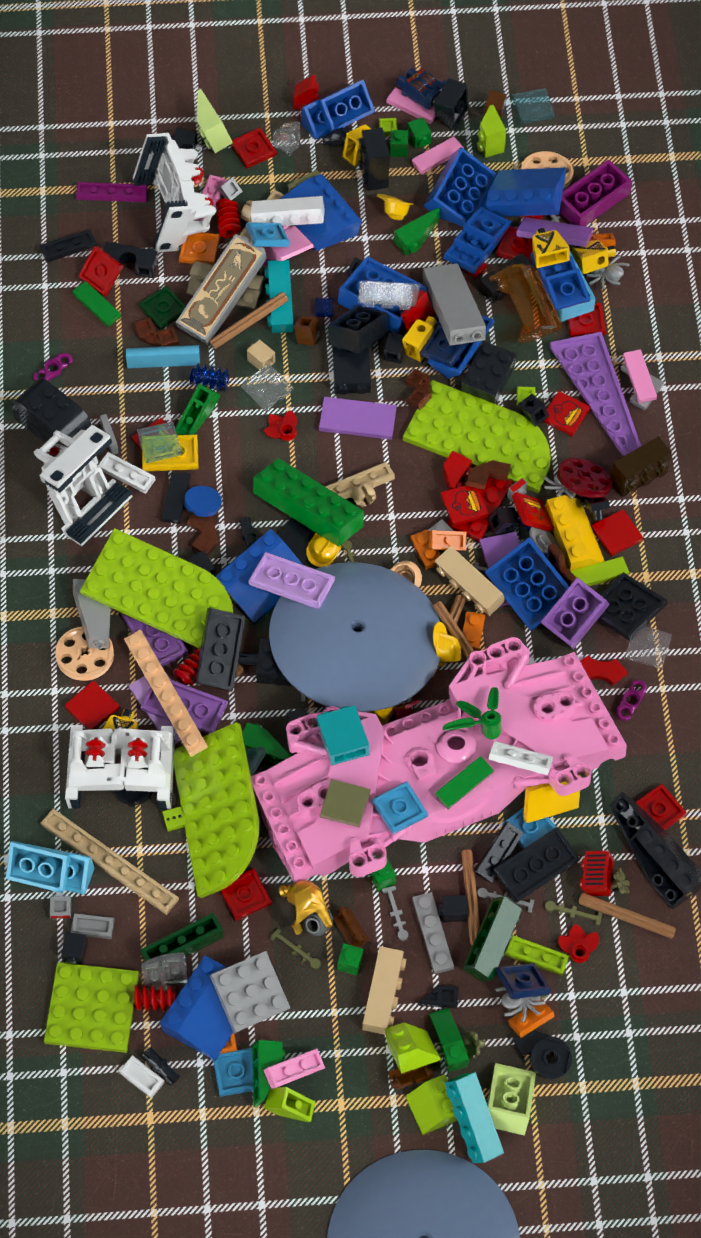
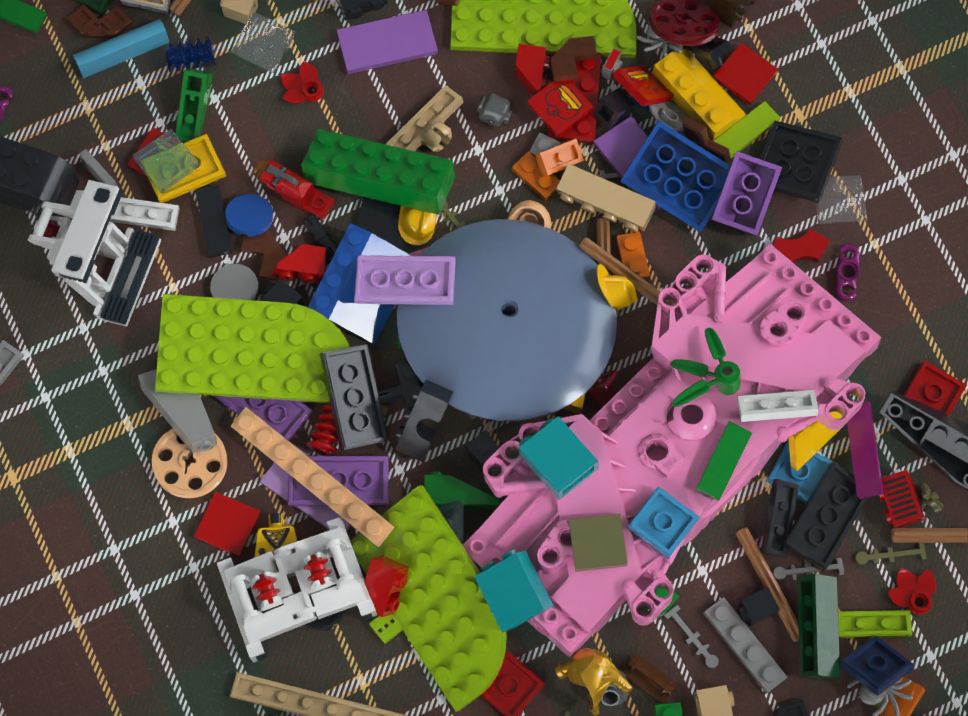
camera: 25 degrees left, 10 degrees up
(172, 542) = (234, 282): none -> light grey tile
(184, 784) = (384, 583): none -> red slope
(224, 546) = (303, 263): none -> red slope
(243, 494) = (294, 188): none -> red plate
(252, 693) = (430, 404): none -> black arch
(271, 816) = (513, 590): none -> teal brick
(414, 491) = (494, 110): none -> dark grey head
(584, 827) = (865, 453): none -> magenta tile

